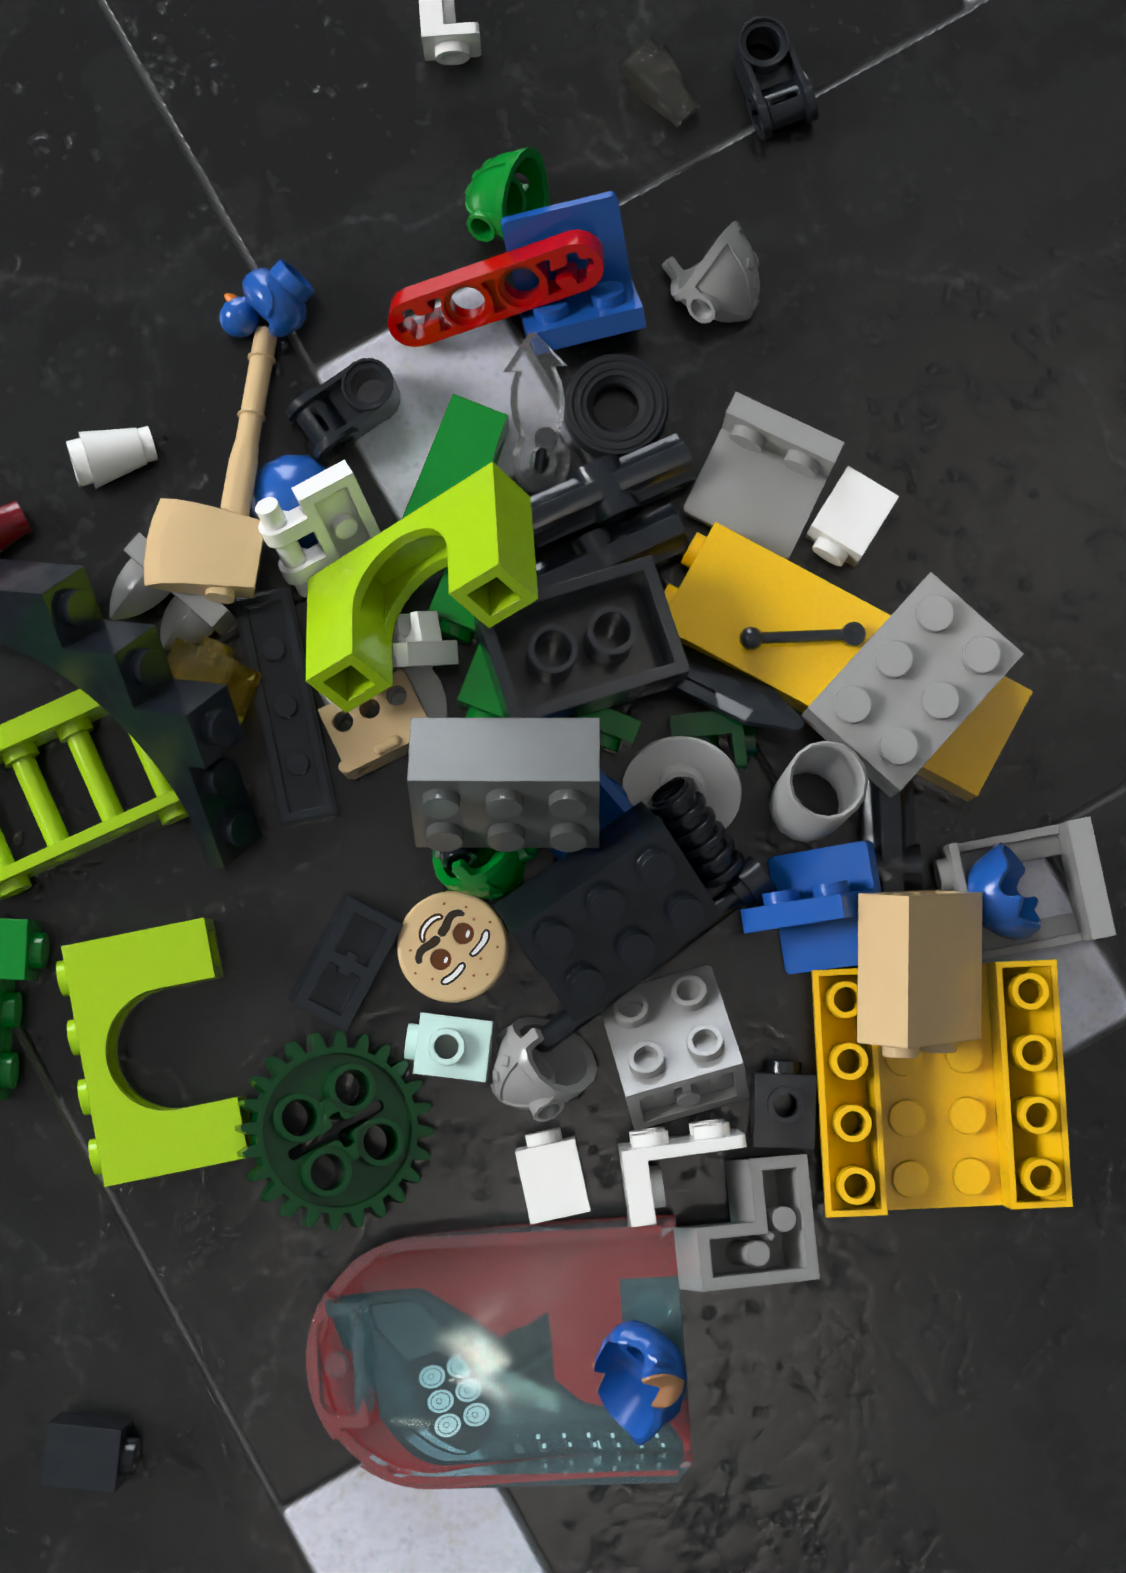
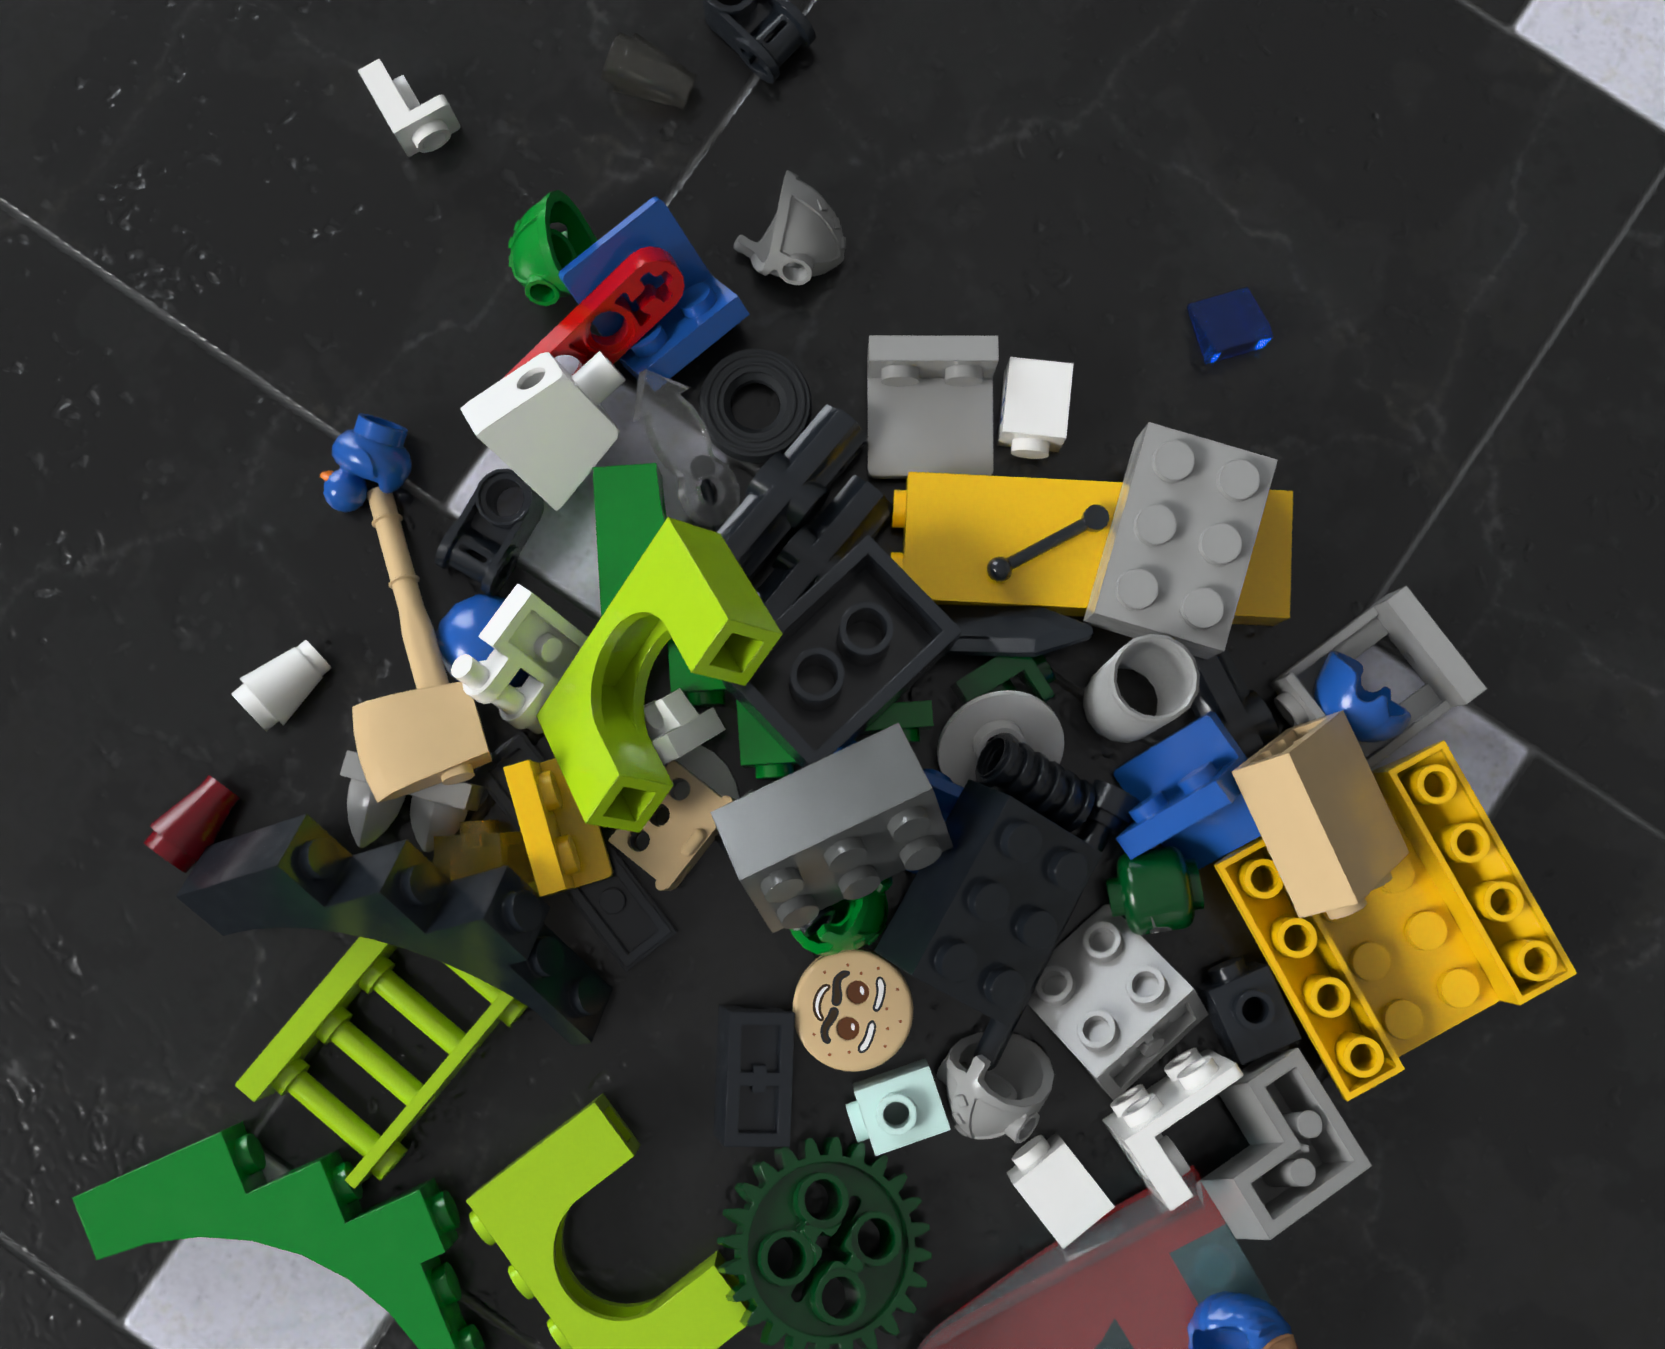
camera: 30 degrees left, 0 degrees up
(276, 692) = (557, 840): none -> yellow bracket
(434, 339) = (548, 422): none -> white torso
(753, 971) = (1156, 891): none -> dark green head
(1053, 528) = (1229, 325): none -> clear blue slope

